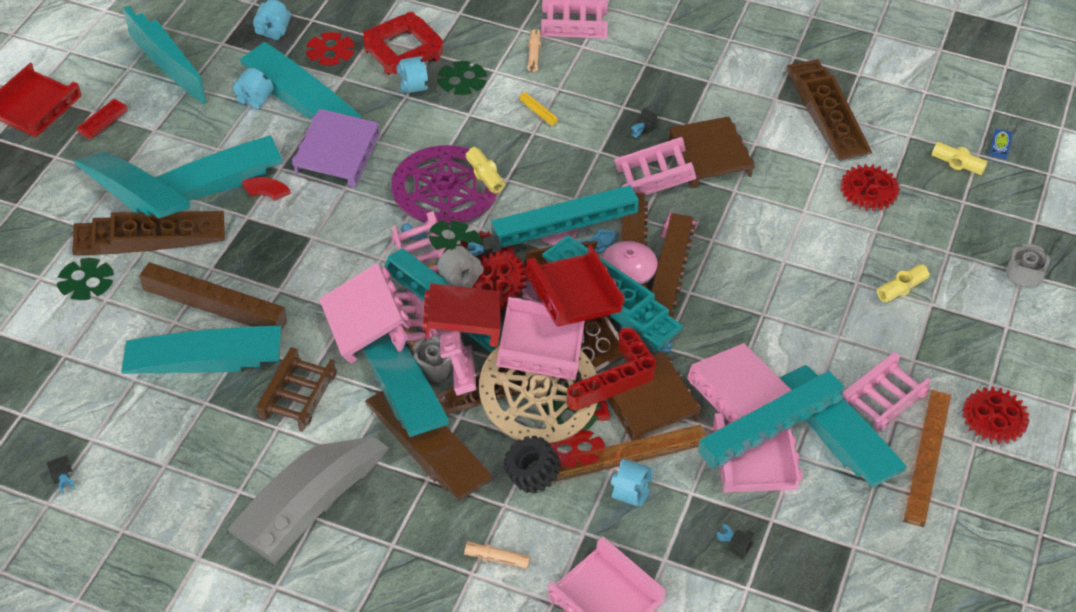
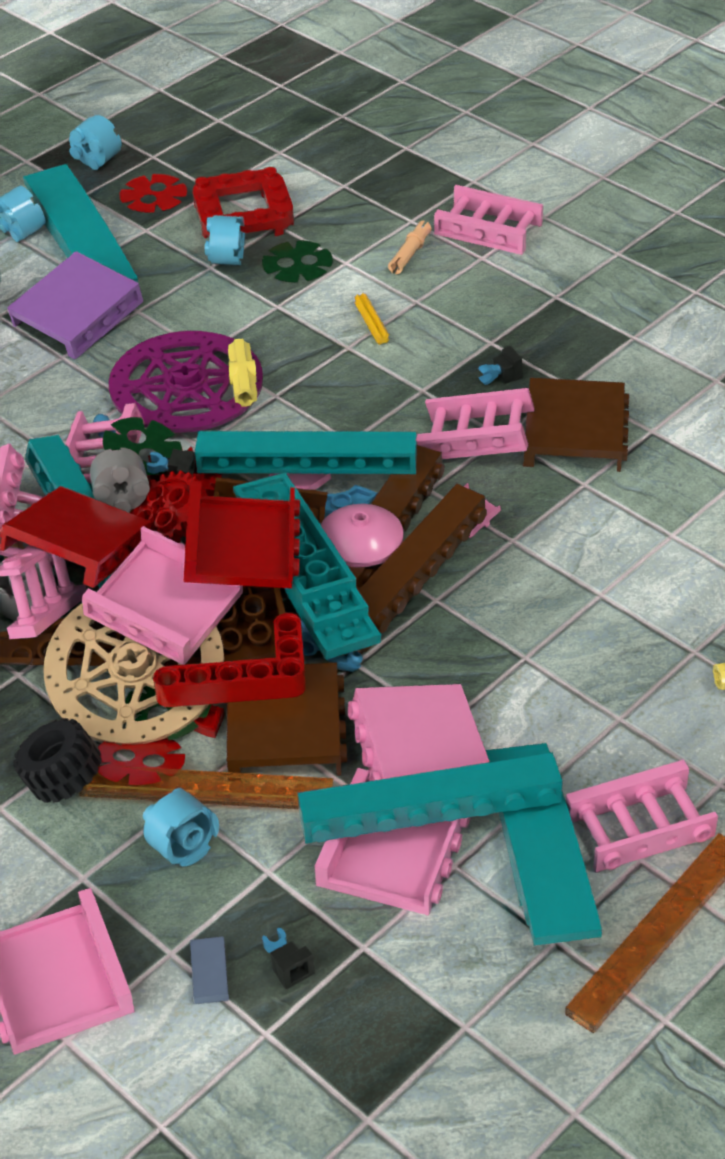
camera: 25 degrees right, 5 degrees down
(694, 562) = (209, 970): none -> sand blue tile

